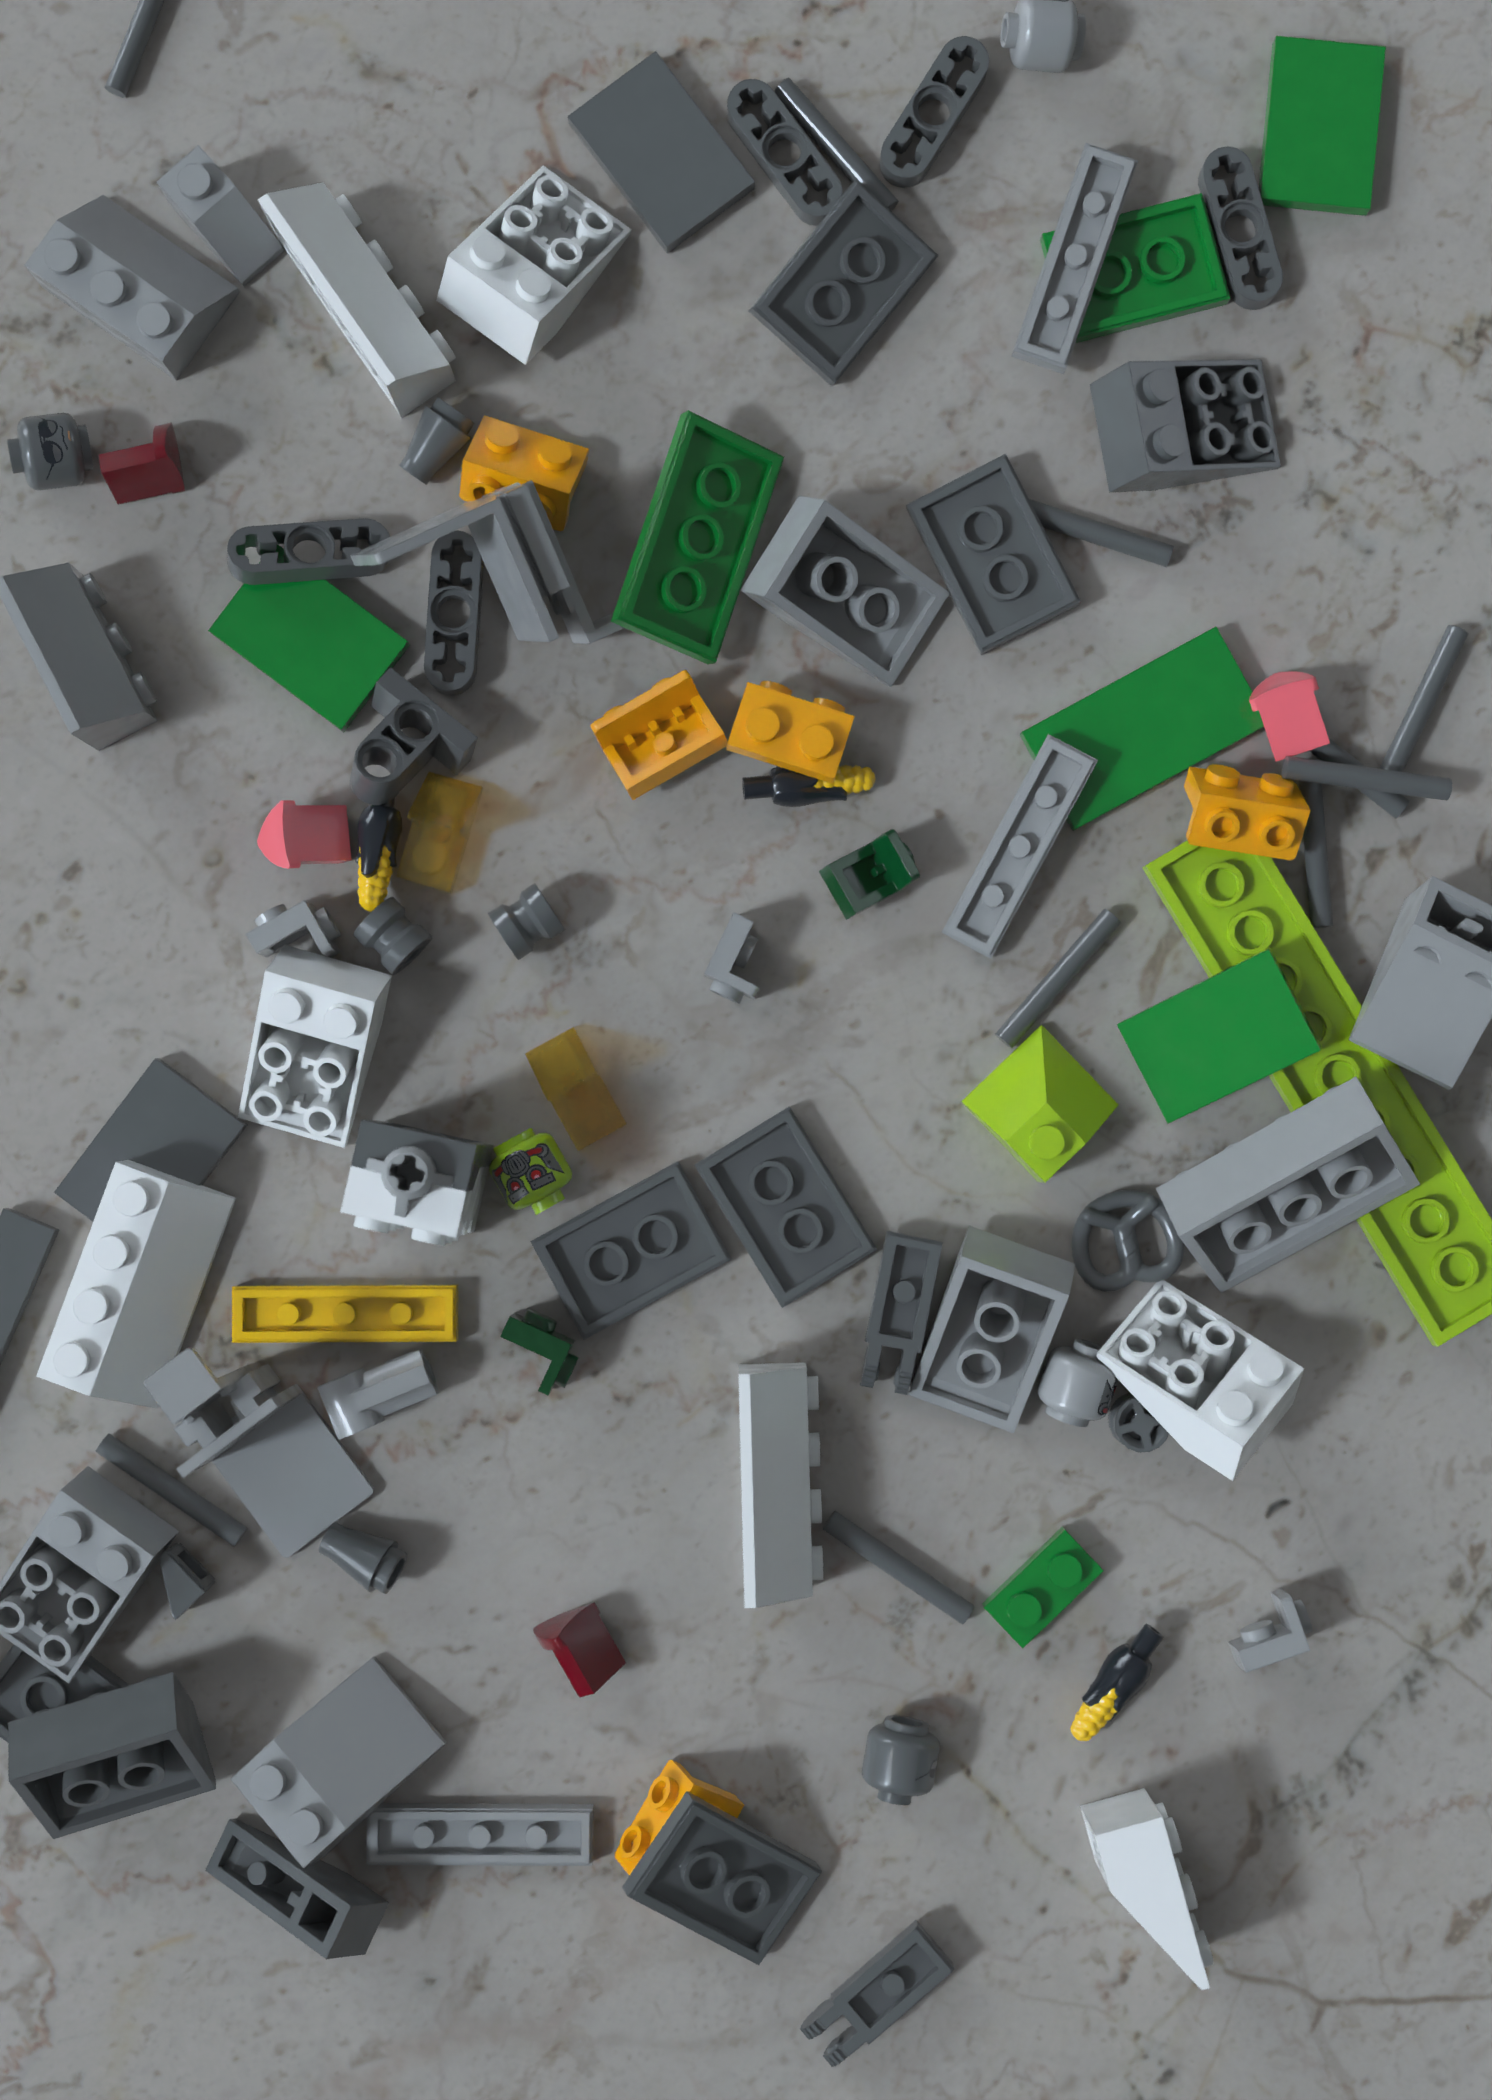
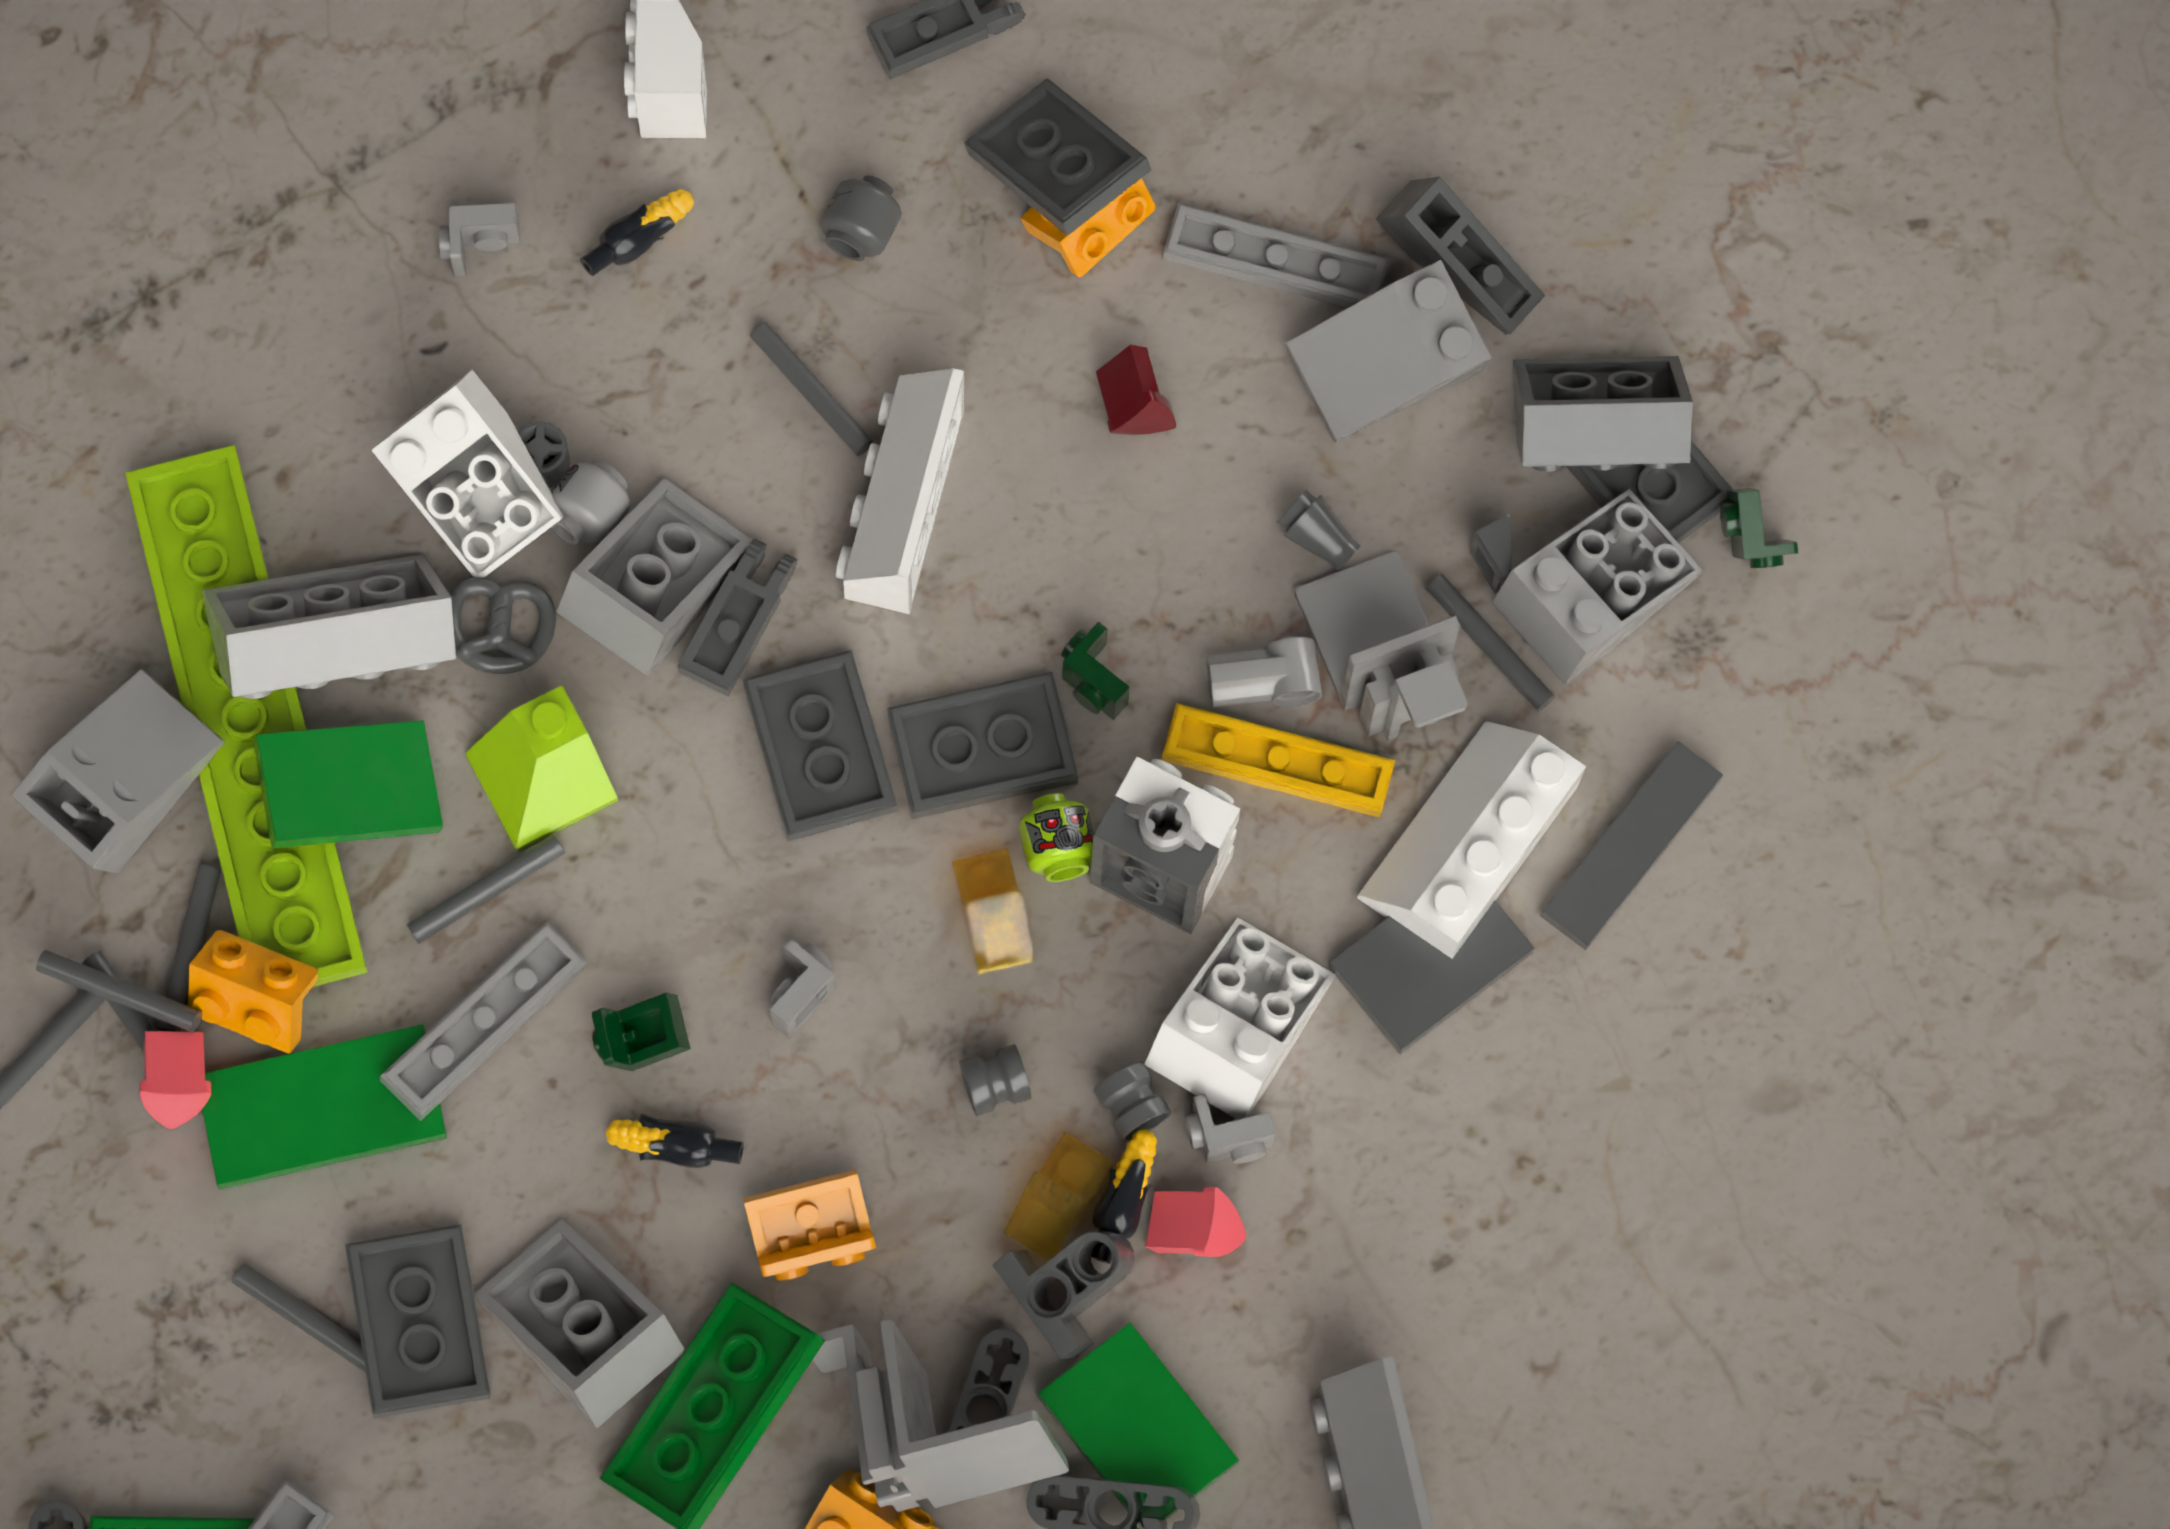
camera: 165 degrees left, 15 degrees down
(790, 730) = (677, 1189): light orange bracket -> none
(1042, 1587) = (680, 335): green plate -> none
(1183, 423) = (181, 1396): dark grey slope -> none

